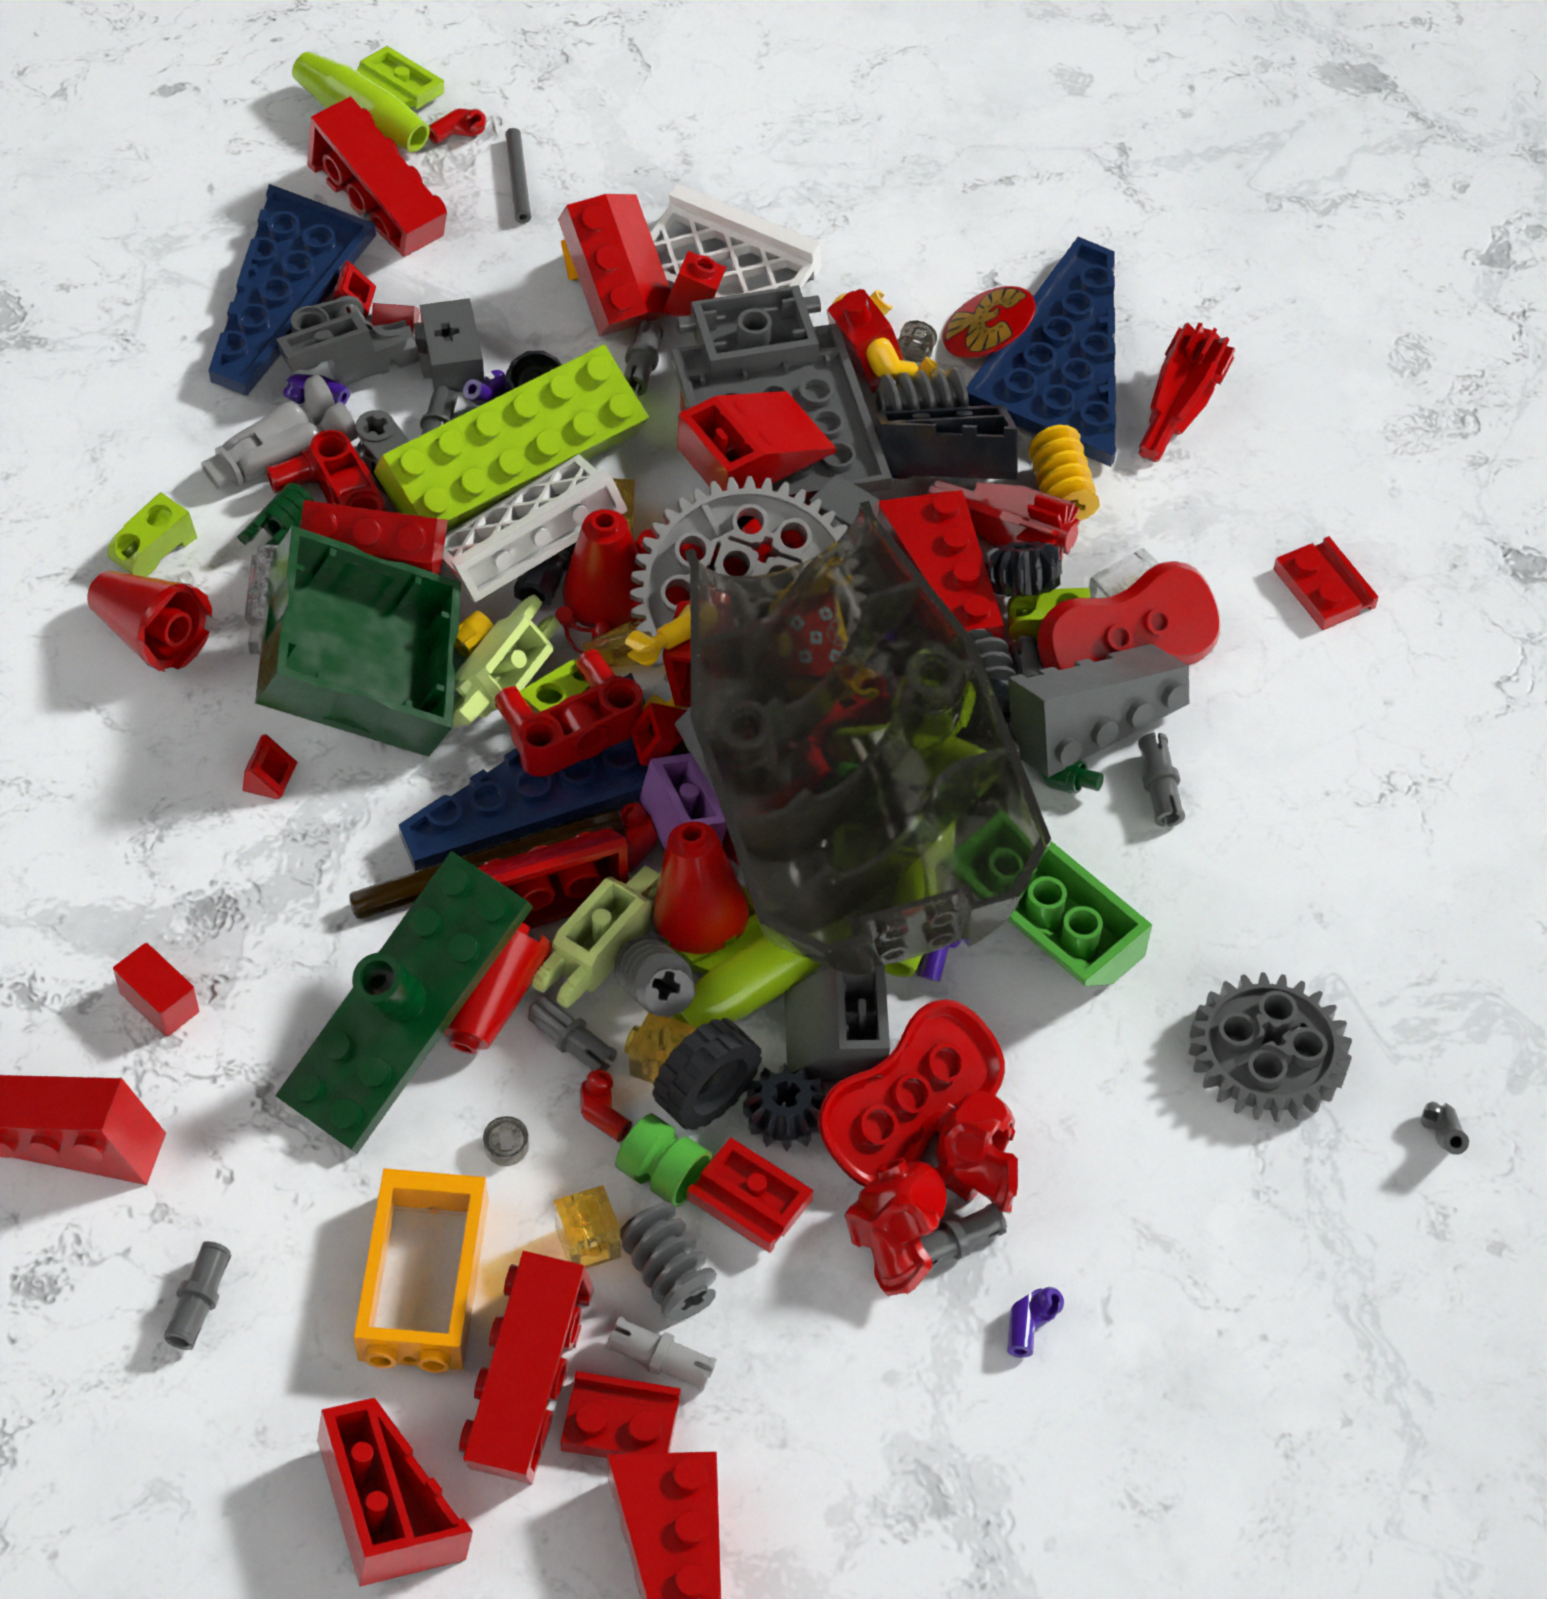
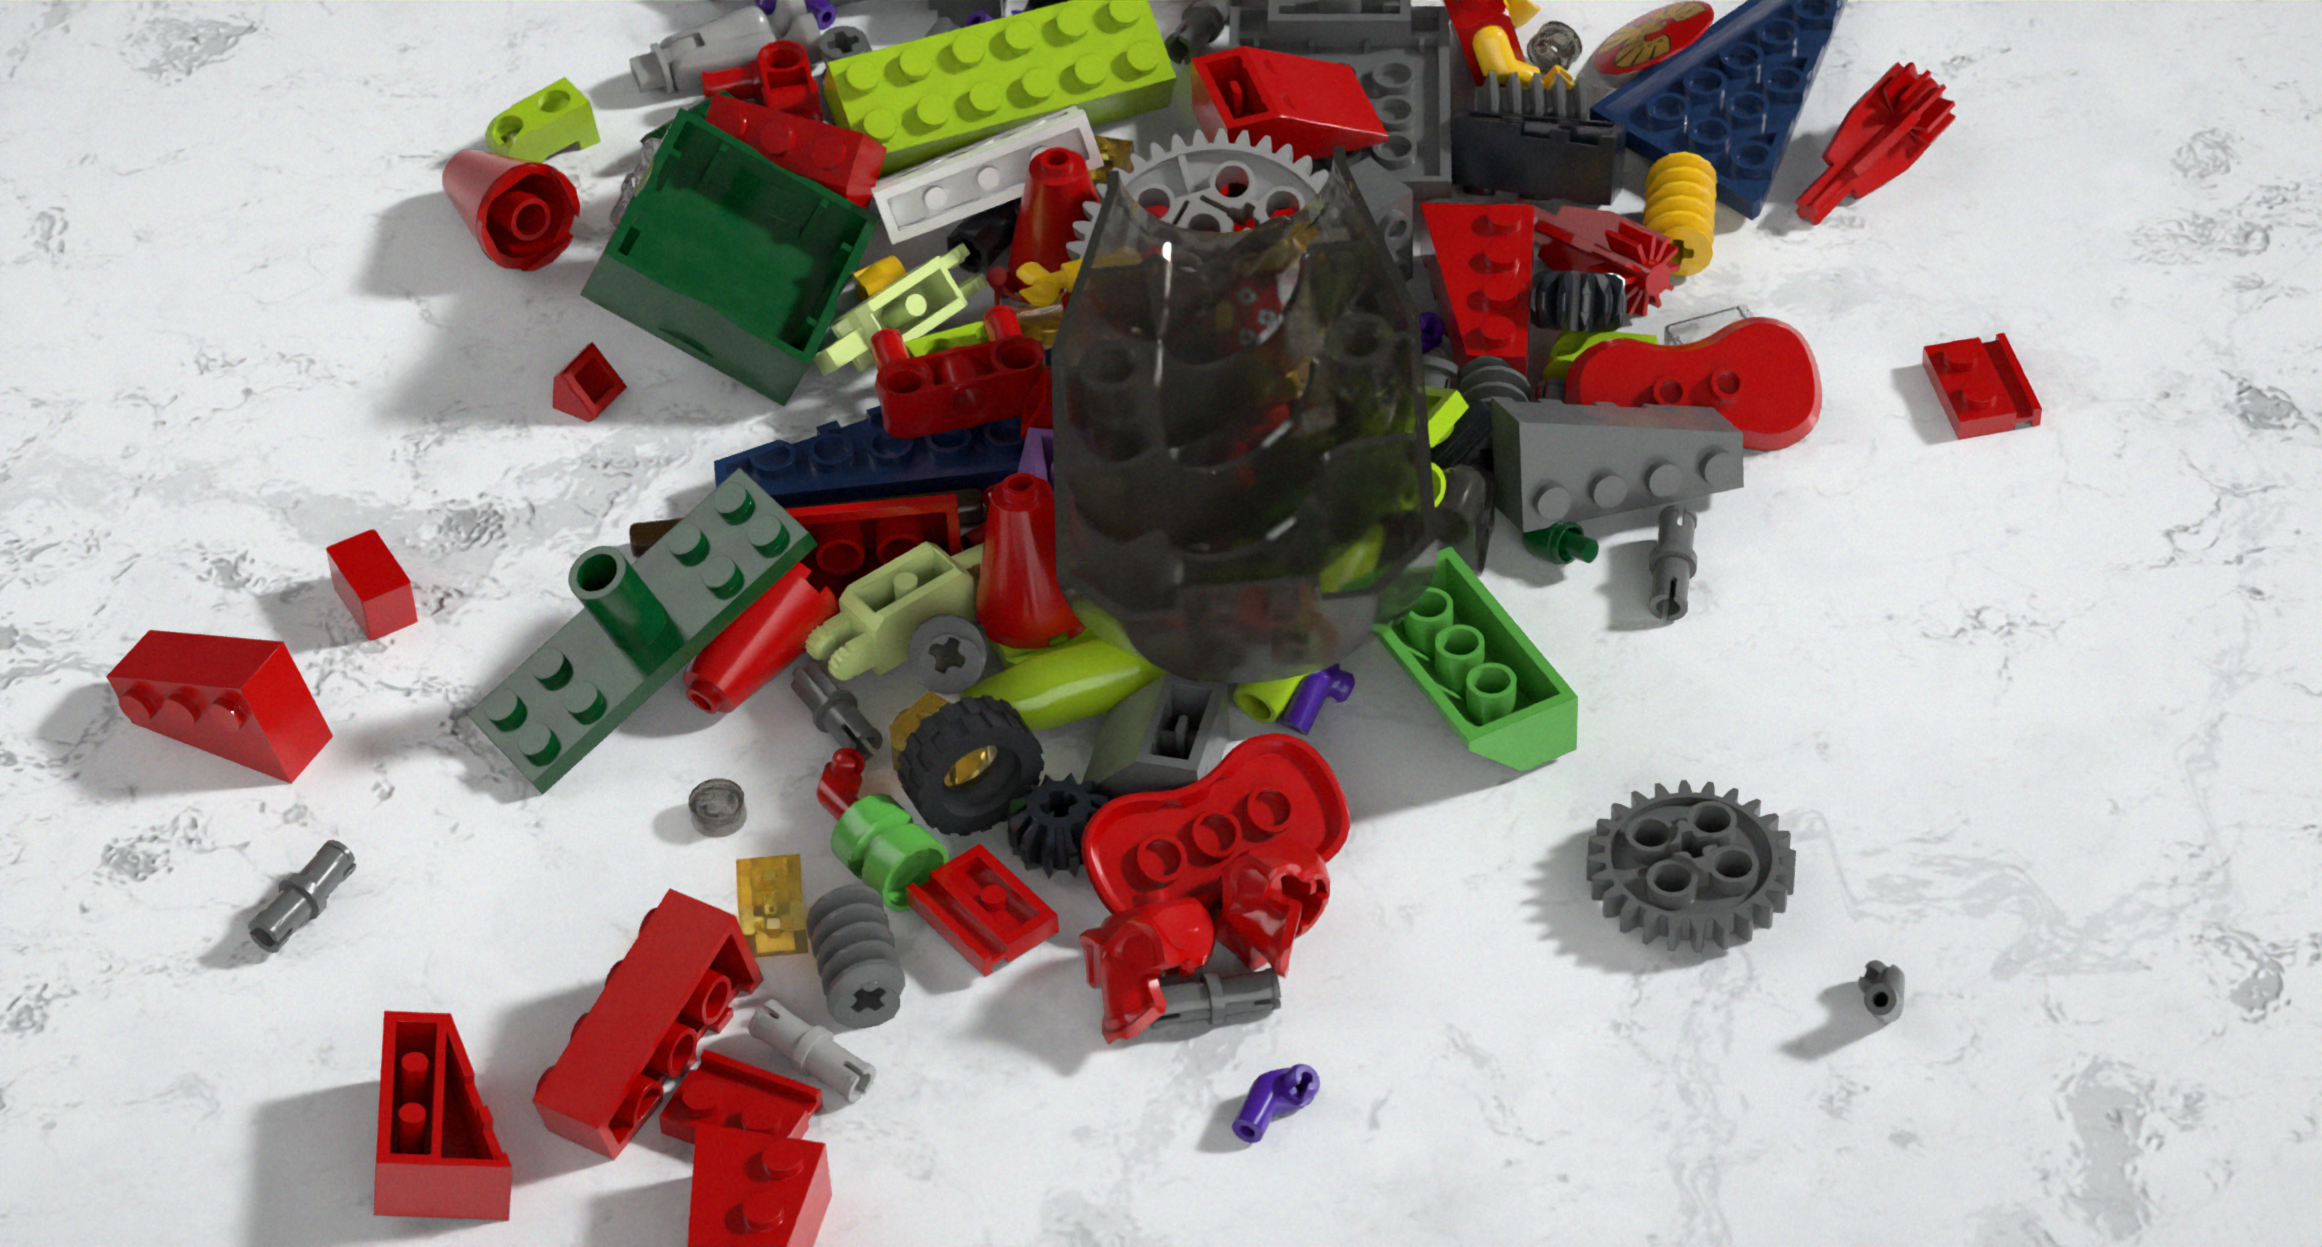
camera: 20 degrees right, 10 degrees down
(421, 1270) = (565, 913): window -> none

